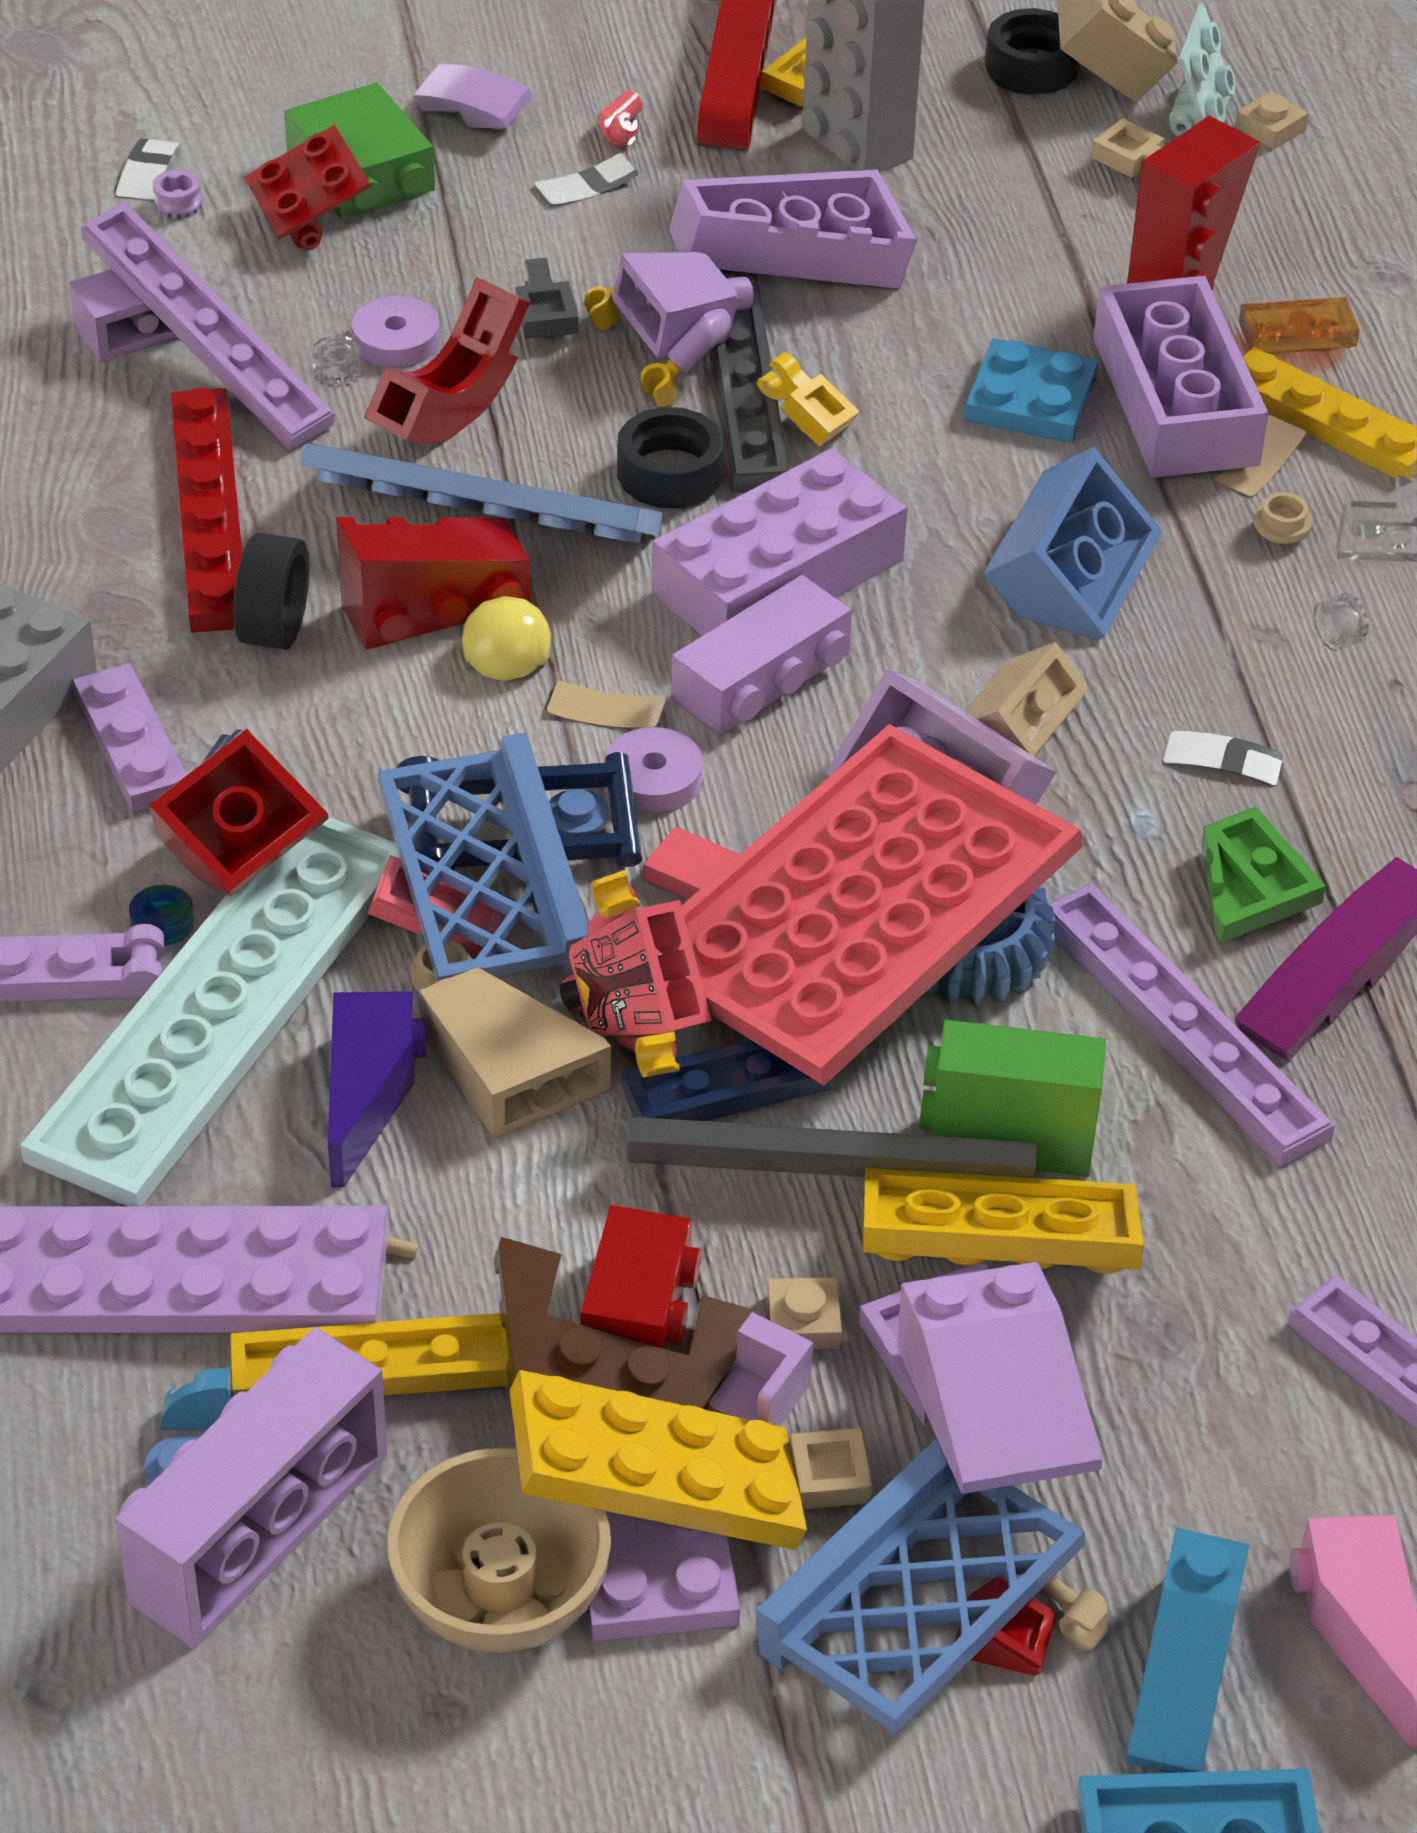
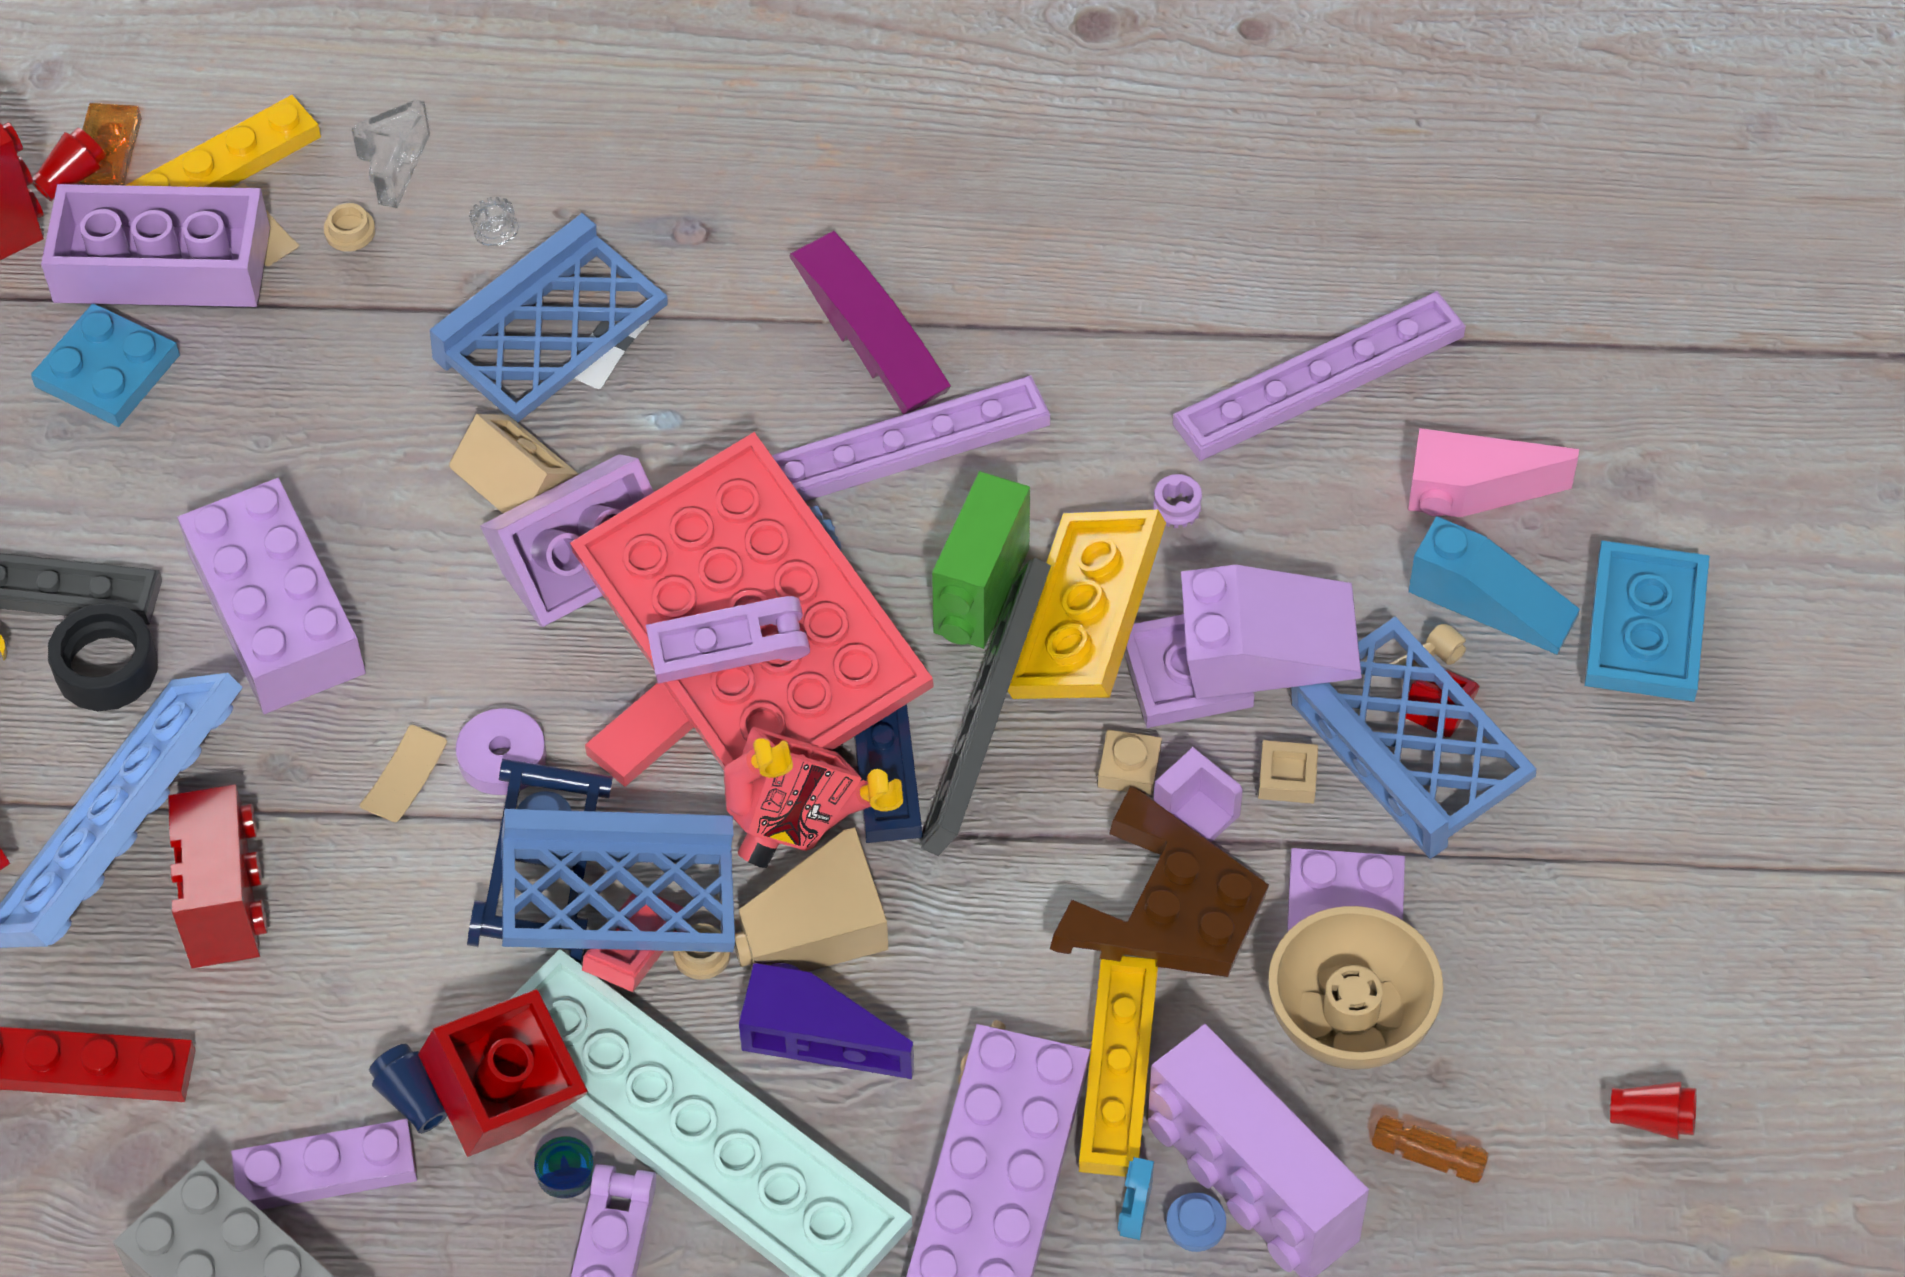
camera: 75 degrees left, 10 degrees up
(271, 591) = (199, 1003): black tyre -> none
(324, 1698) = (1430, 1148): none -> clear orange axle
(506, 638) = (302, 834): light yellow hair -> none
(641, 1277) = (1089, 862): red brick -> none
(655, 1460) = (1288, 871): yellow plate -> none
(761, 654) = (400, 637): lavender brick -> none
(801, 869) = (727, 639): none -> lavender plate
(809, 403) = (76, 526): yellow plate -> none
(1074, 548) = (338, 381): medium blue slope -> none
(1202, 1318) = (1182, 512): none -> lavender bush
(1245, 658) = (513, 297): none -> medium blue fence
(1250, 288) = (69, 162): none -> red cone
(1254, 875) = (759, 357): bright green wing -> none

